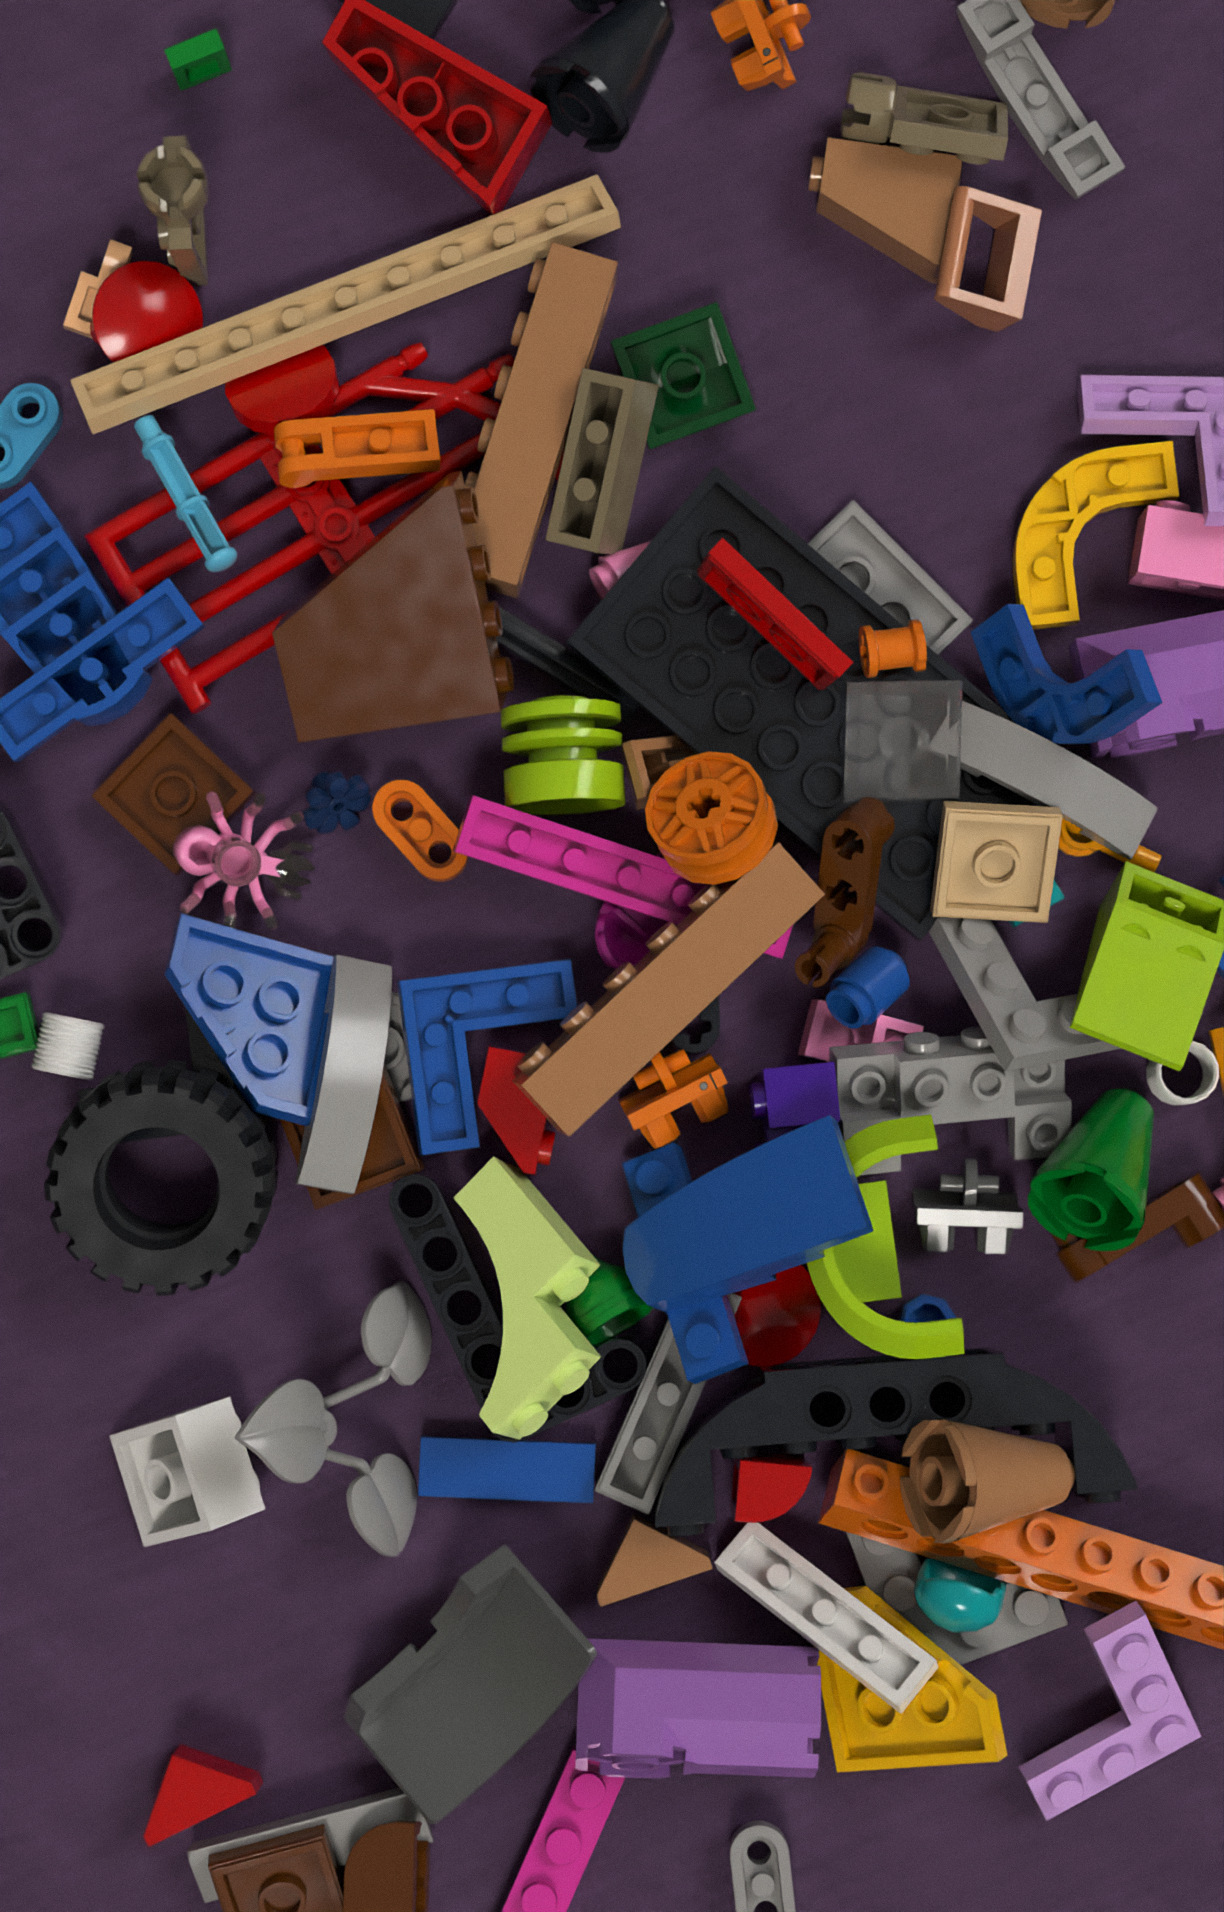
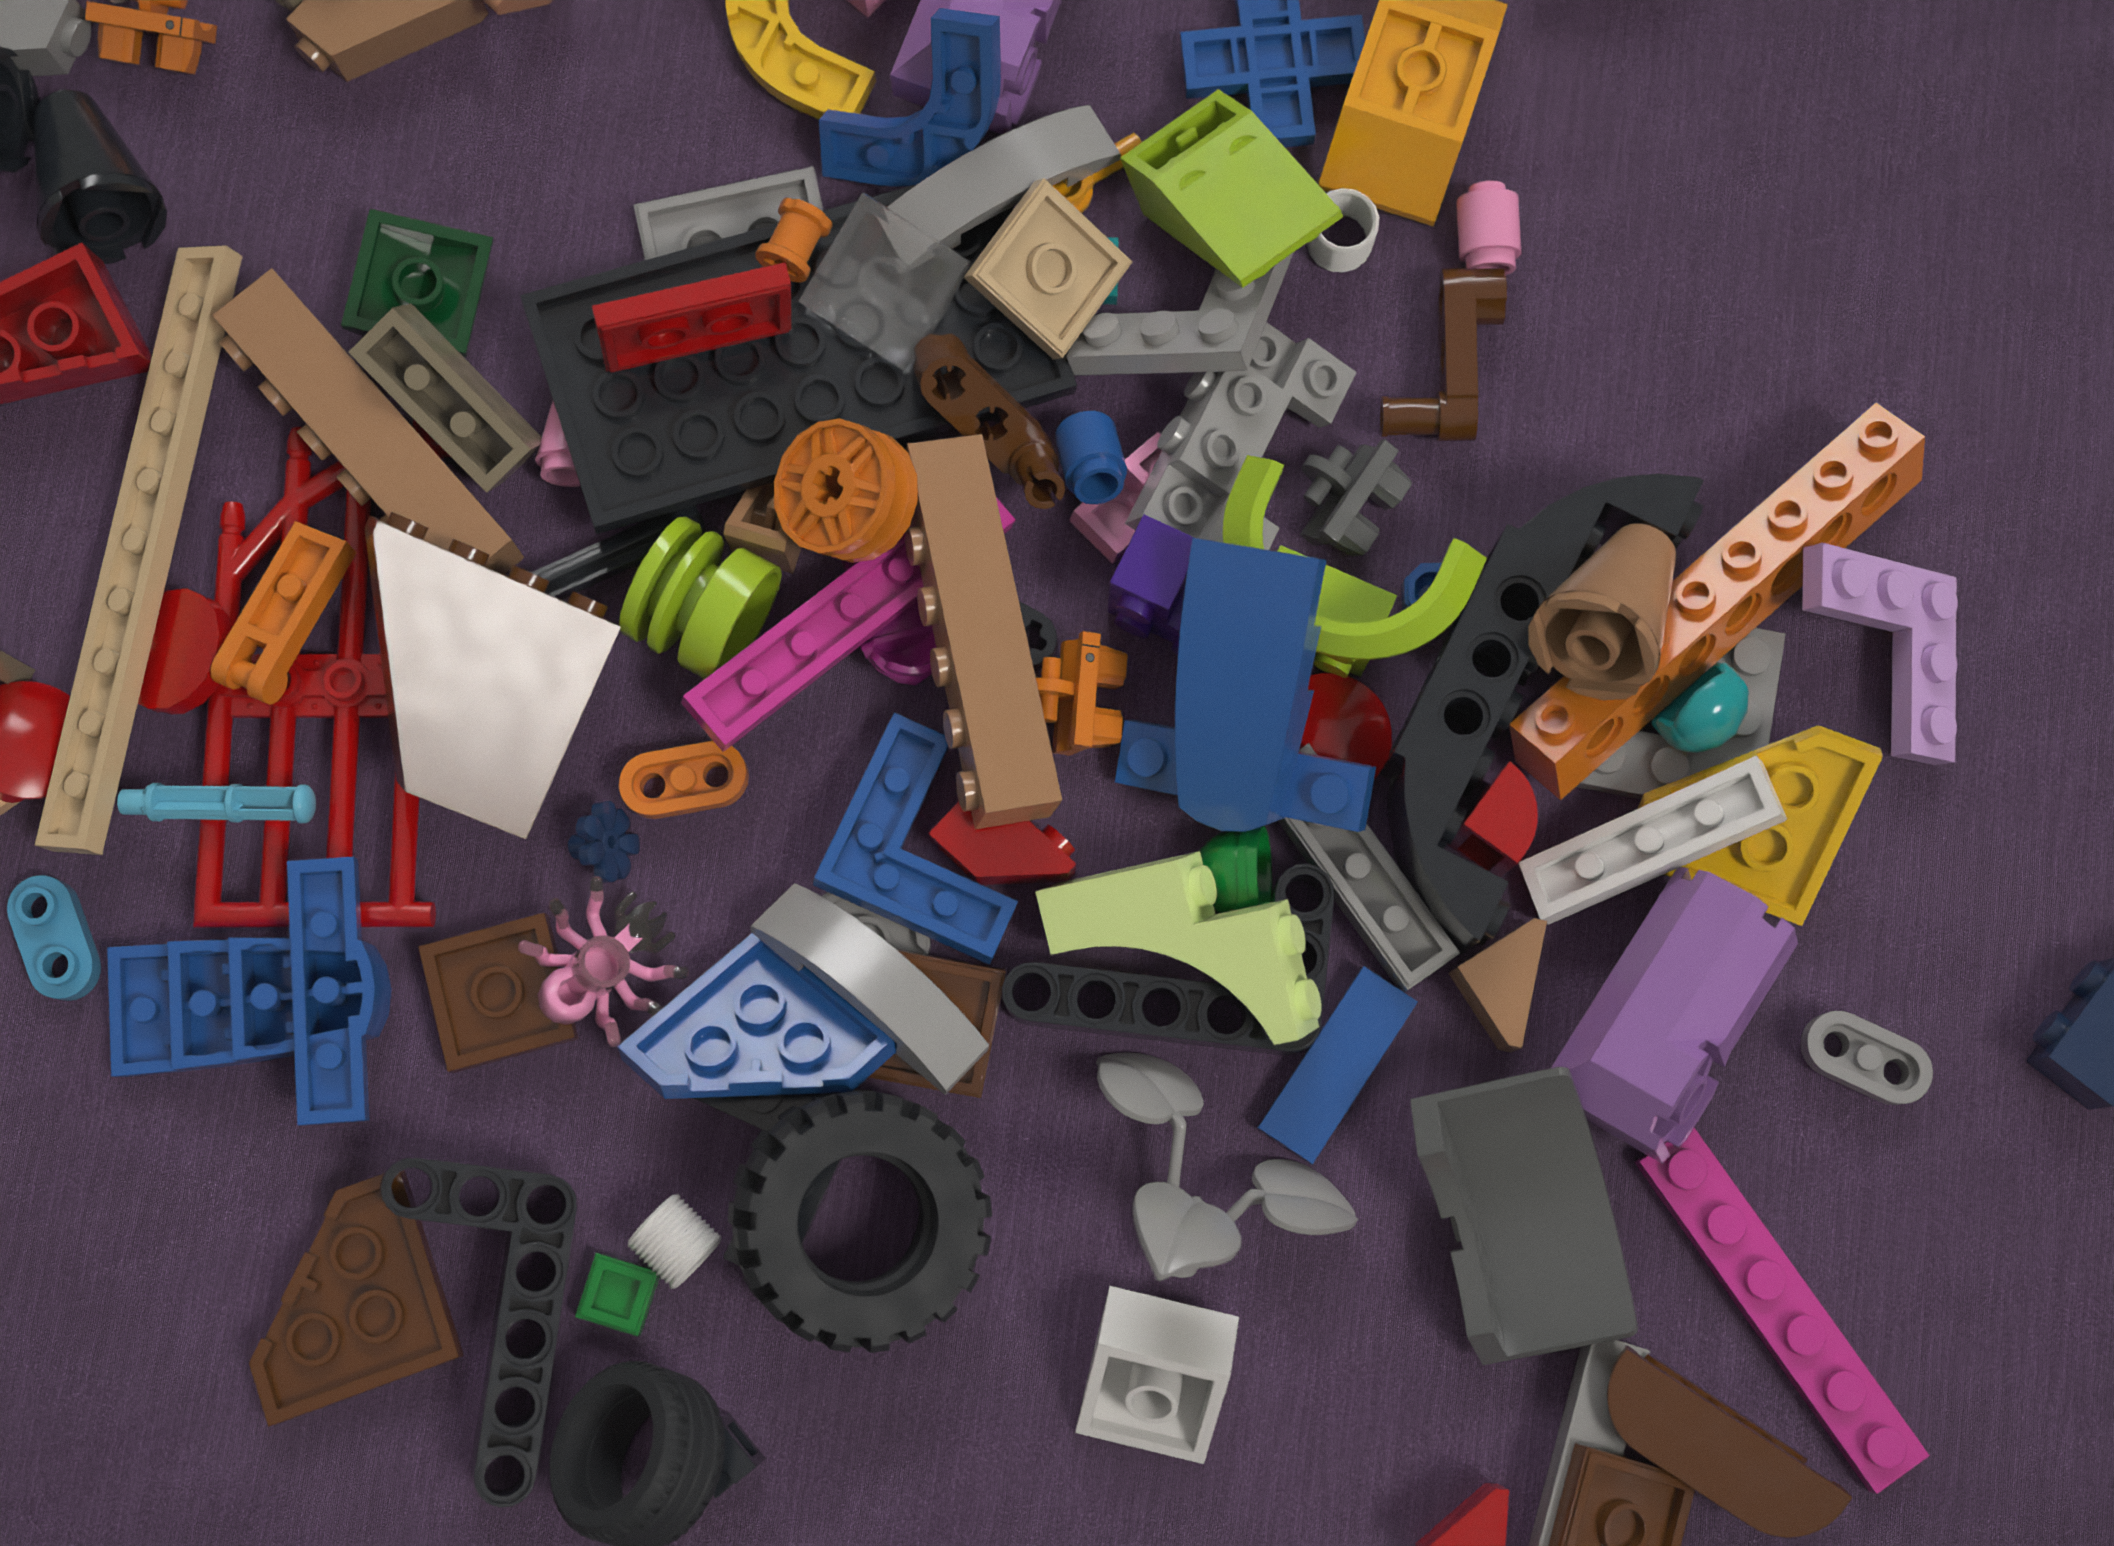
camera: 60 degrees left, 5 degrees down
(1098, 1174) = (1394, 351): green cone -> none

